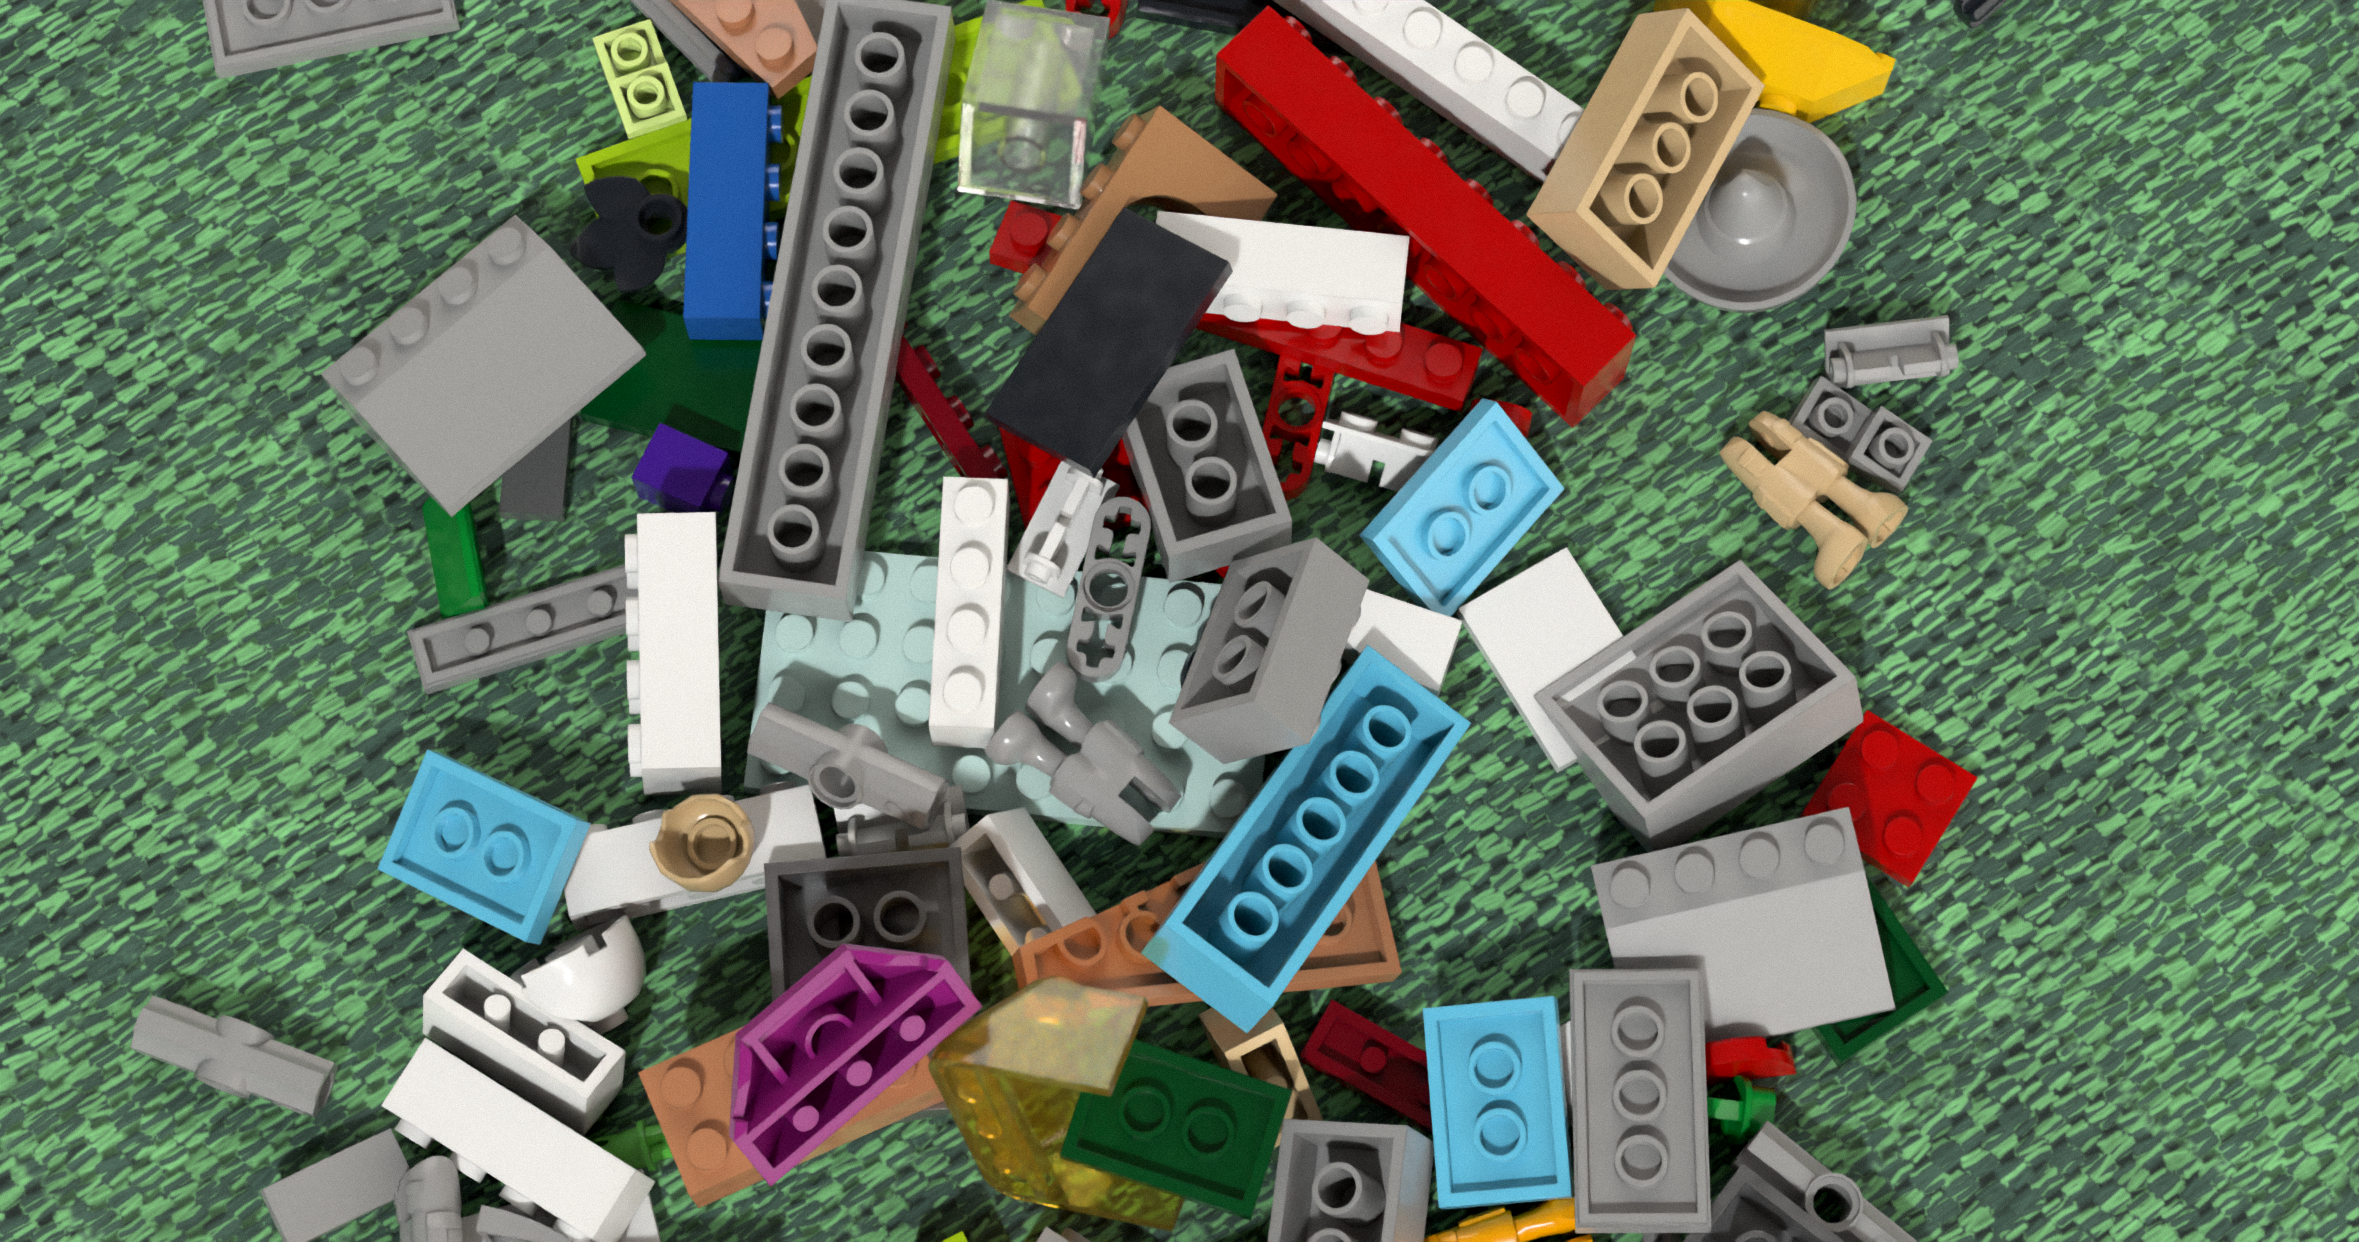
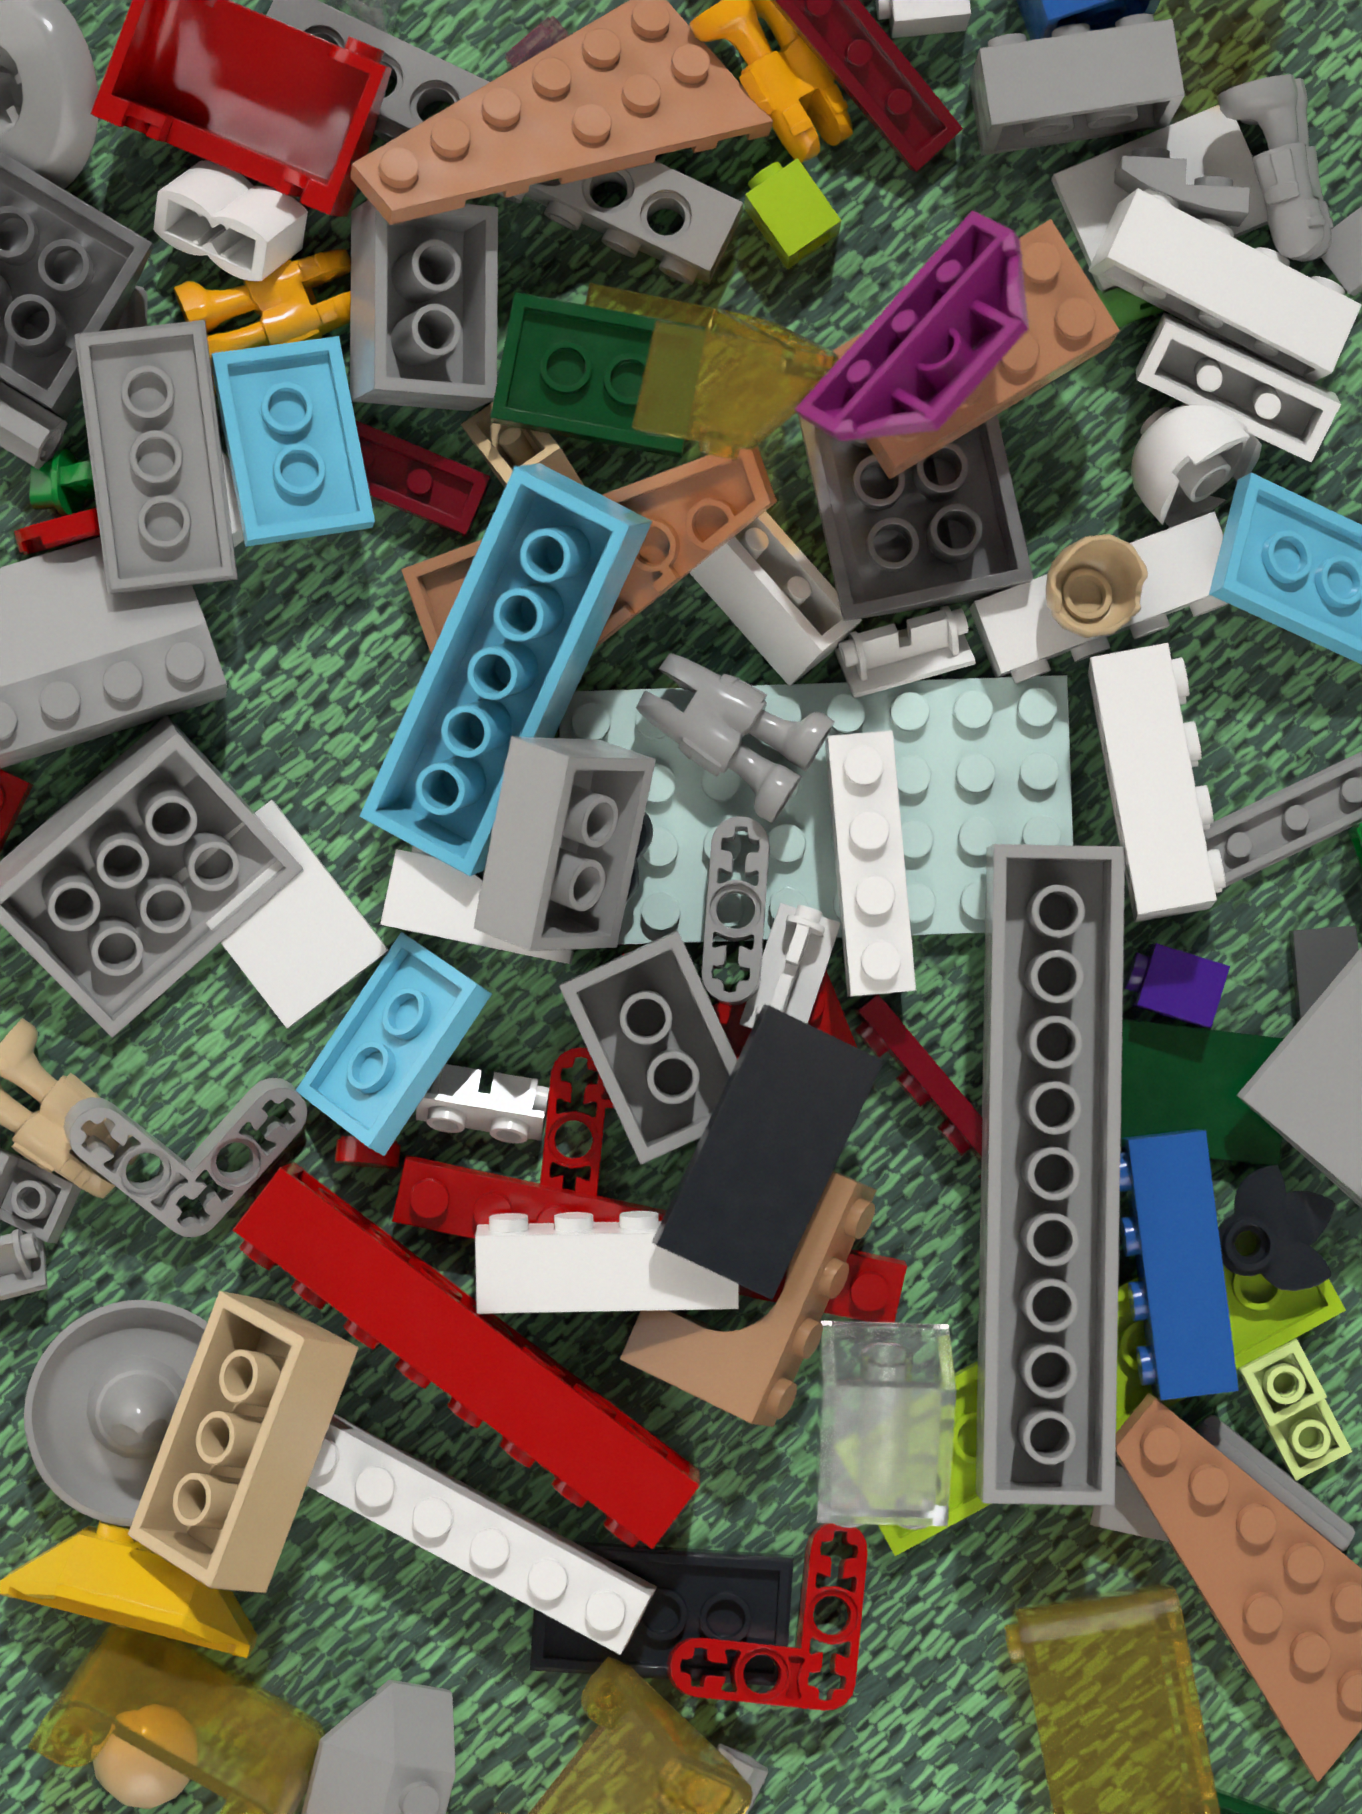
camera: 175 degrees right, 15 degrees up
(847, 766) = (967, 690): light grey piece -> none
(1682, 417) = (183, 1177): none -> light grey beam

